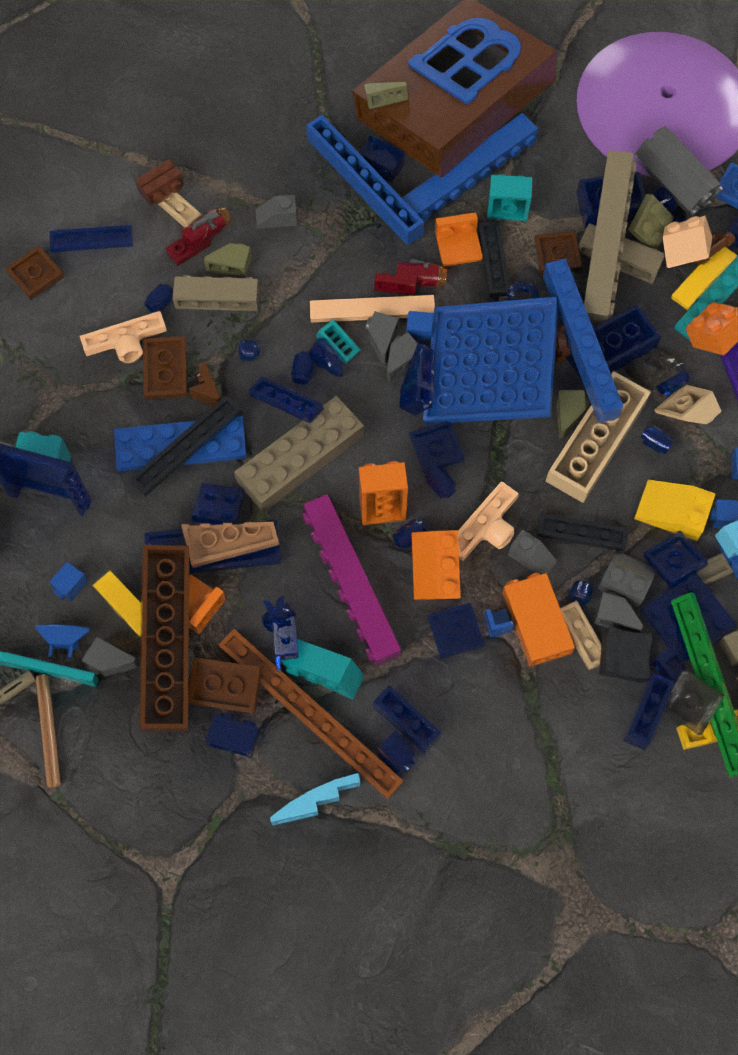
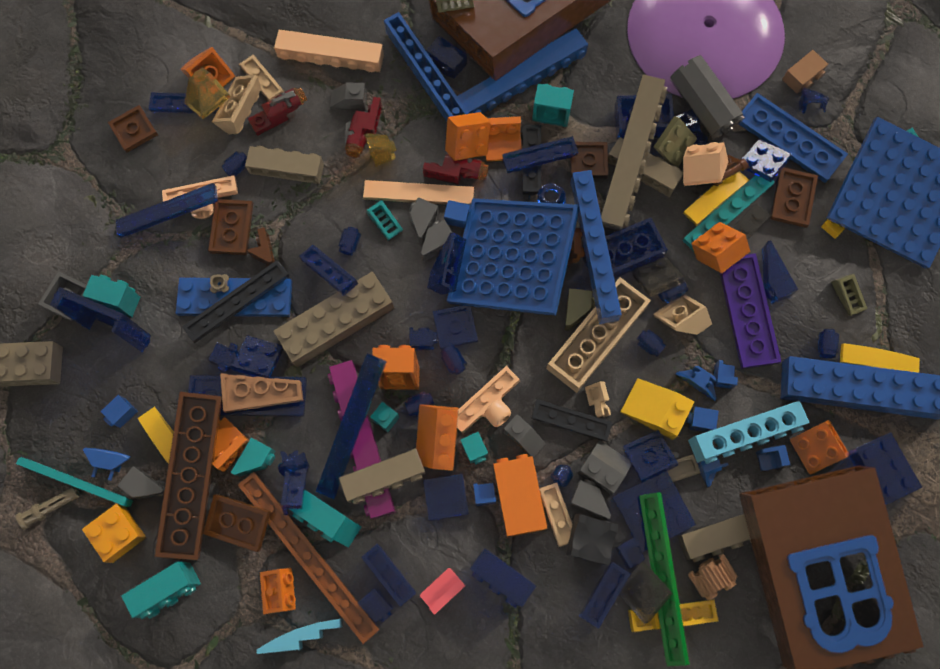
camera: 10 degrees right, 5 degrees up
(48, 731) = (82, 544): medium nougat axle -> none
(85, 714) = (114, 533): none -> light orange brick
(90, 356) = (167, 210): none -> clear blue tile
(111, 201) = (212, 63): none -> orange slope
(115, 224) = (204, 93): none -> clear yellow slope
(151, 767) = (161, 590): none -> teal brick
(153, 232) = (237, 108): none -> tan slope
(160, 182) = (250, 58): copper brick -> none
(163, 423) = (215, 279): none -> dark tan plate
(180, 508) = (223, 356): none -> clear blue piece
(230, 260) = (301, 135): olive slope -> none
(232, 614) = (253, 458): none -> teal slope
(233, 735) = (238, 568): clear blue brick -> none
(247, 165) = (329, 51): none -> light nougat brick
(248, 350) = (305, 219): clear blue piece -> none
(281, 754) = (277, 590): none -> orange bracket
(297, 244) = (362, 124): none -> dark red plate
(322, 264) = (380, 148): none -> clear yellow slope
(326, 357) = (371, 233): clear blue plate -> none
(343, 558) = (351, 425): none -> clear blue plate
(373, 552) = (385, 417): none -> teal brick
(384, 611) = (381, 476): none -> dark tan brick
(411, 461) = (422, 339): none -> clear blue brick
(420, 239) = (467, 136): none -> orange brick
(467, 732) = (442, 590): none -> coral panel
(479, 574) = (474, 448): none -> teal brick
(503, 251) = (540, 154): none -> clear blue plate
(533, 706) = (502, 578): none -> clear blue brick
(606, 503) = (597, 396): none -> tan plate
(717, 473) = (700, 380): none -> blue piece

